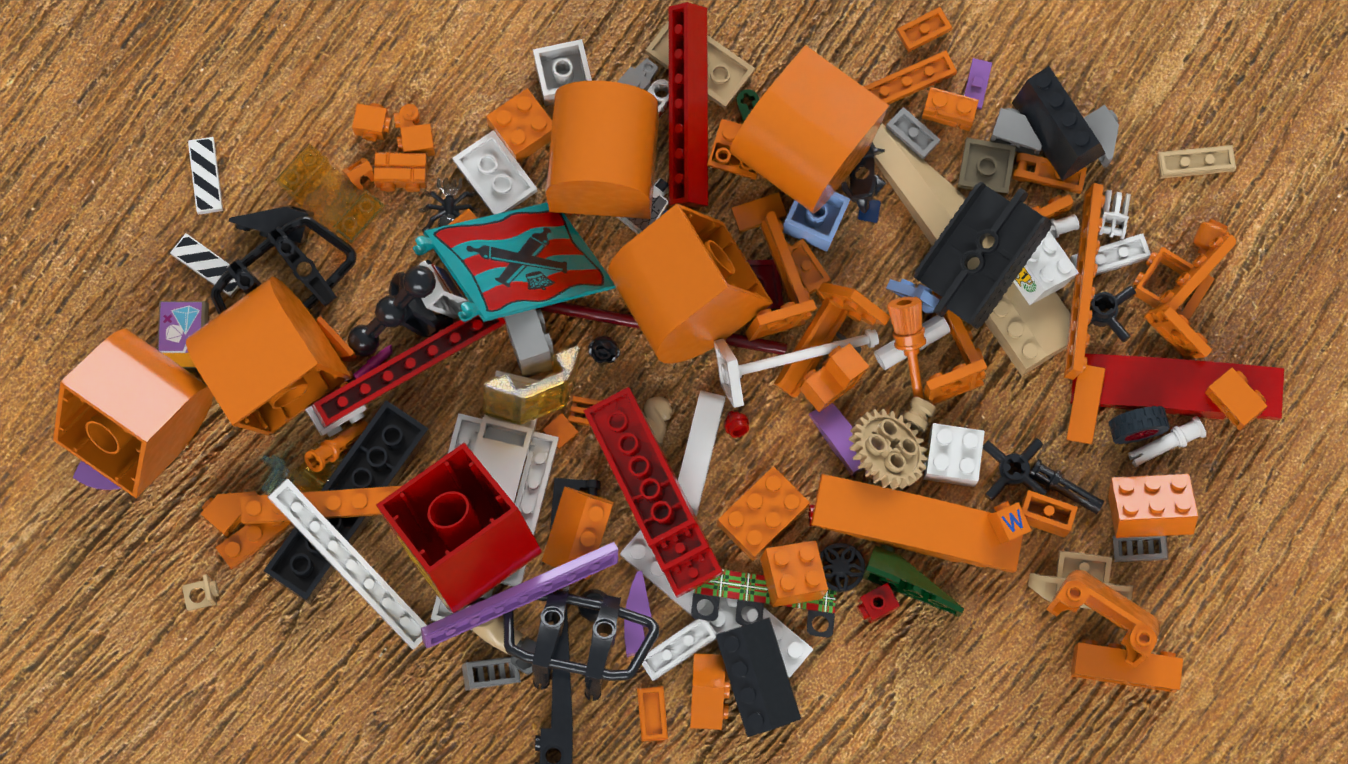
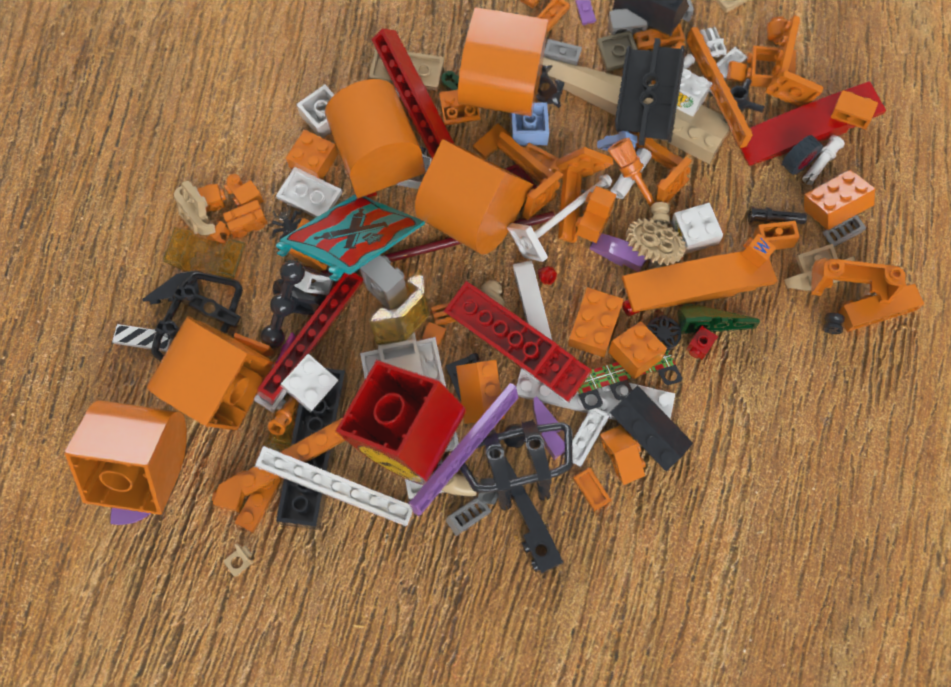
camera: 20 degrees left, 5 degrees down
(176, 324) = (135, 387): piece -> none
(205, 175) = (114, 282): tile -> none
(277, 474) = (254, 448): clear light blue bracket -> none
(341, 129) = (193, 209): none -> tan plate
(377, 426) = (309, 382): none -> white brick
(604, 349) = (436, 268): black plate -> none
(871, 214) = (560, 112): dark blue sticker -> none
(950, 109) = (577, 27): orange brick -> none
(1020, 462) = (739, 213): black bar -> none
(1056, 658) = (833, 323): none -> black wheel
(1086, 405) = (761, 161): orange tile -> none
(1124, 269) = (737, 71): none -> orange tile

